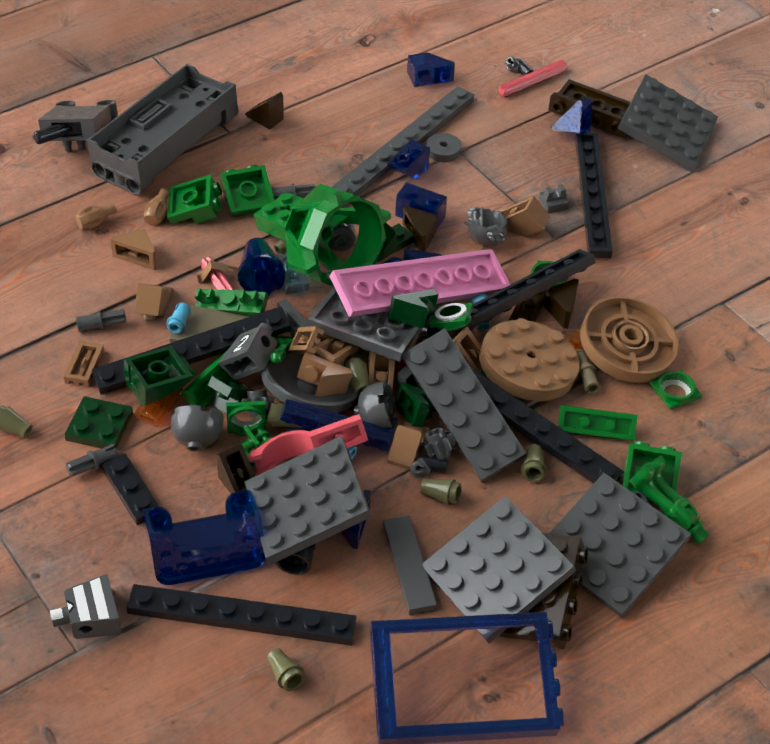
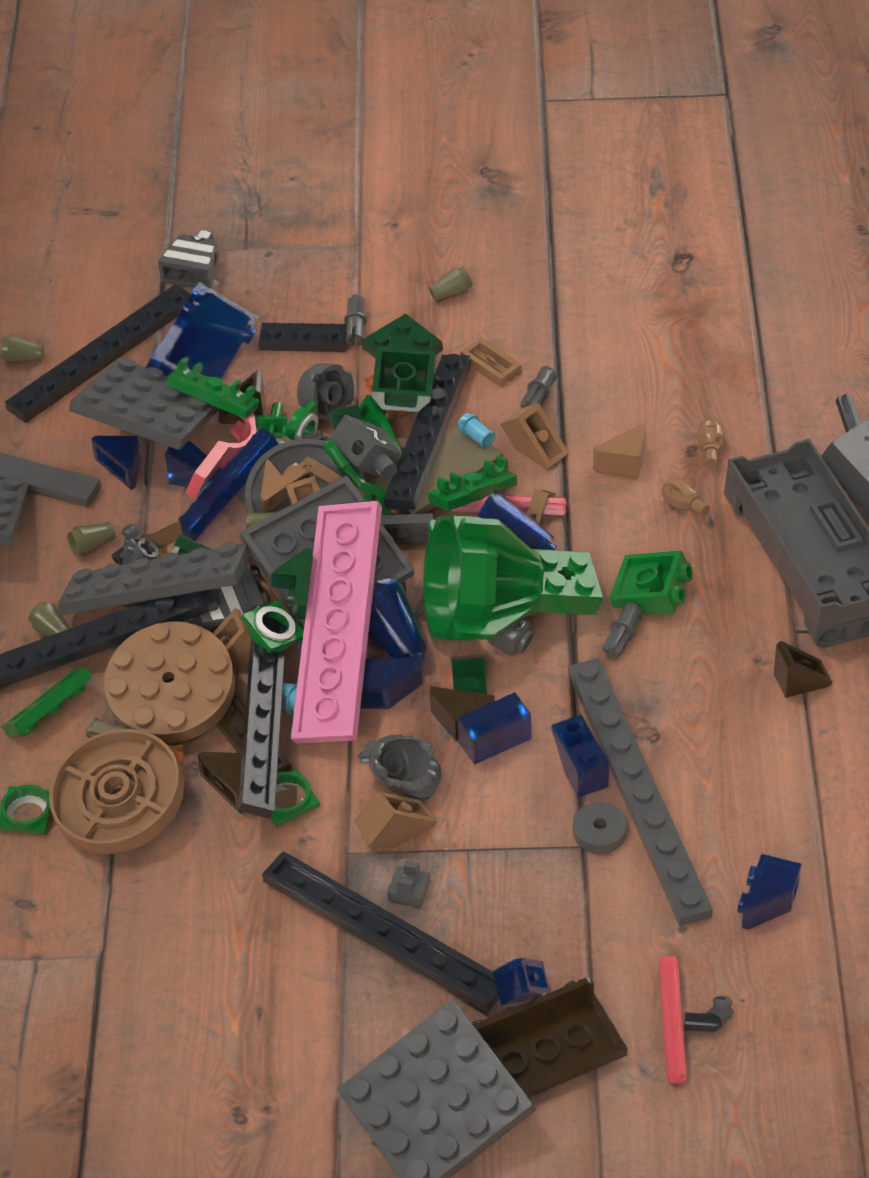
camera: 130 degrees right, 0 degrees up
(194, 200) = (667, 528): green plate -> none
(261, 468) = (213, 390): none -> green plate
(377, 405) = (218, 524): dark grey cylinder -> none

